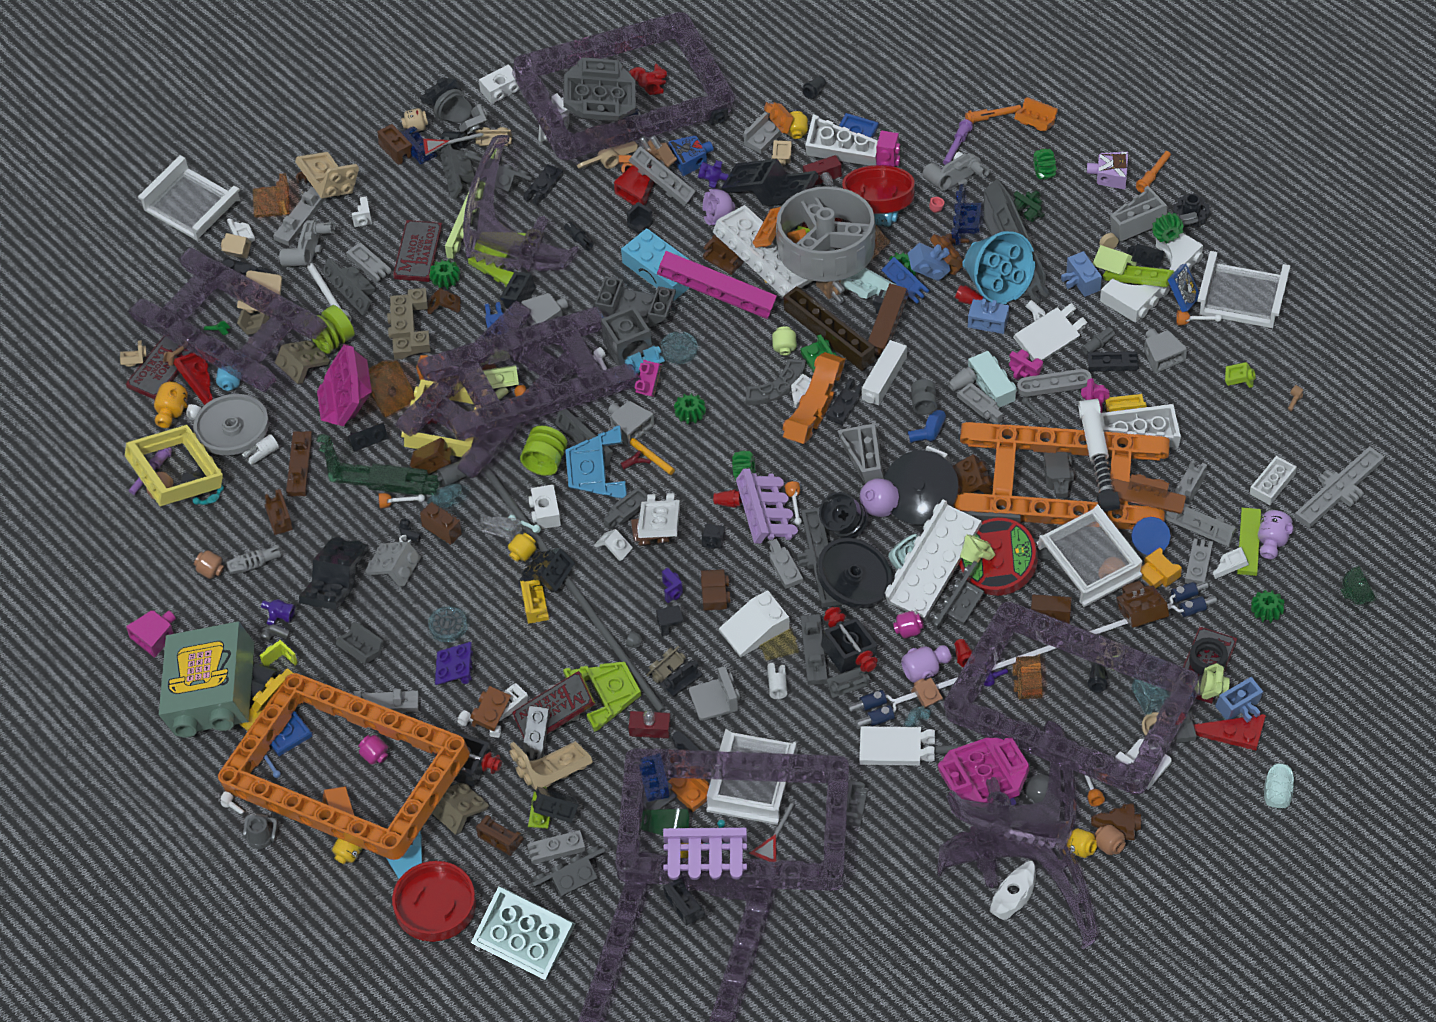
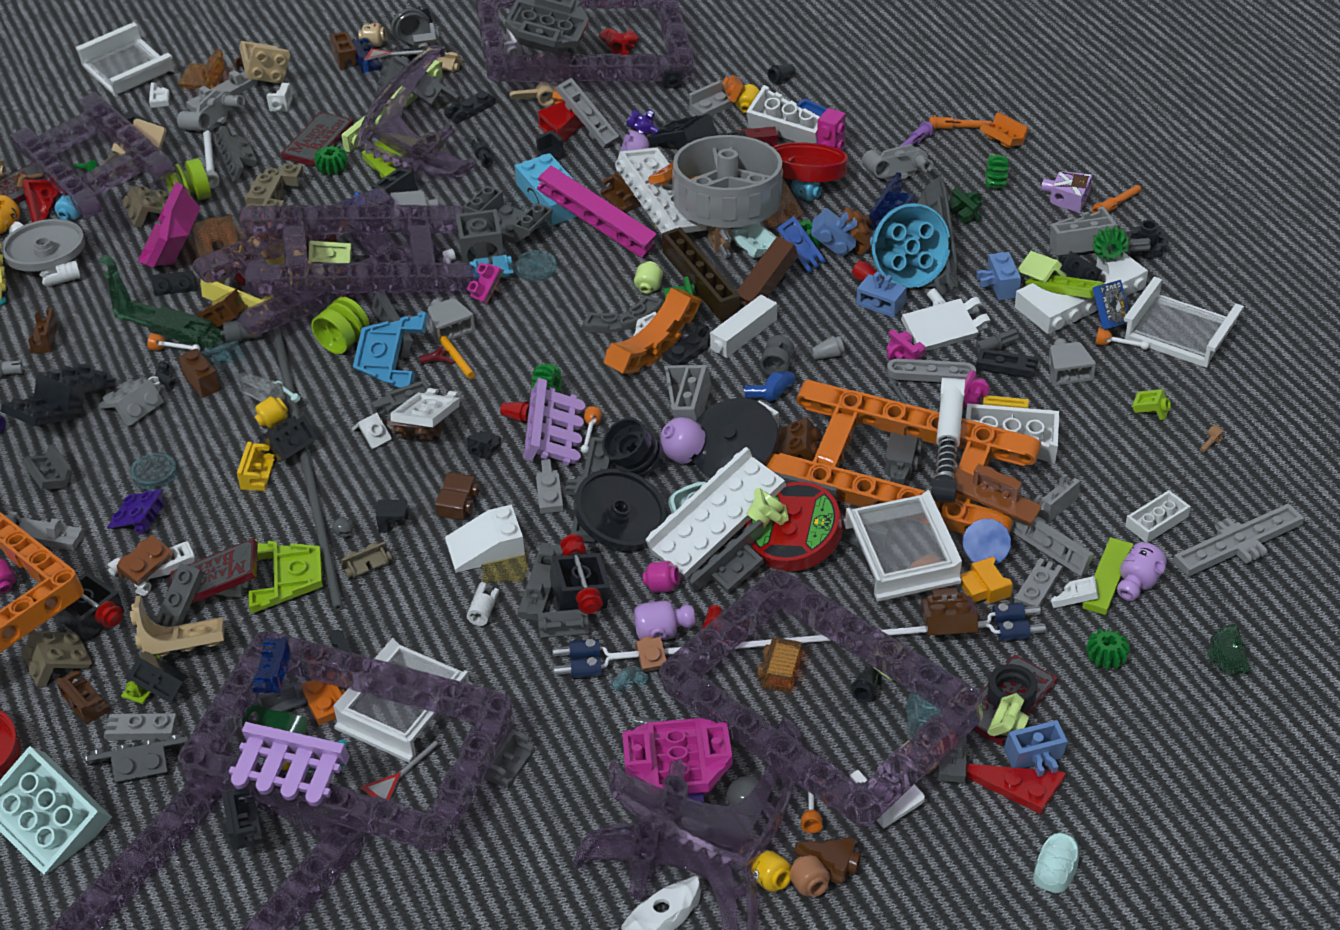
camera: 15 degrees right, 10 degrees down
(236, 245) = (144, 102): tan brick -> none
(299, 463) = (90, 297): reddish brown hinge -> none
(368, 262) = (263, 138): light grey hinge -> none
(444, 299) = (319, 181): reddish brown bracket -> none
(498, 84) = (464, 22): white brick -> none
(545, 507) = (316, 380): white brick -> none
(649, 724) = (314, 617): dark red piece -> none
(659, 151) = (594, 92): medium nougat piece -> none
(673, 584) = (413, 485): dark purple bracket -> none
(682, 678) = (370, 580): black hinge -> none
(689, 153) = (625, 100): blue torso -> none
(689, 408) = (517, 319): green gear -> none
(715, 697) = (403, 605): light grey bracket -> none
(782, 151) = (723, 118): tan bracket -> none
(895, 745) = (589, 705): white tile -> none
(936, 204) = (866, 189): coral hinge -> none
(980, 403) = (838, 372): light grey hinge -> none
(990, 679) = (734, 656): dark purple hand -> none
(992, 379) = (862, 354): light aqua brick -> none
(1052, 606) = (841, 592): reddish brown hinge -> none
(1109, 240) = (1044, 249): tan tile -> none

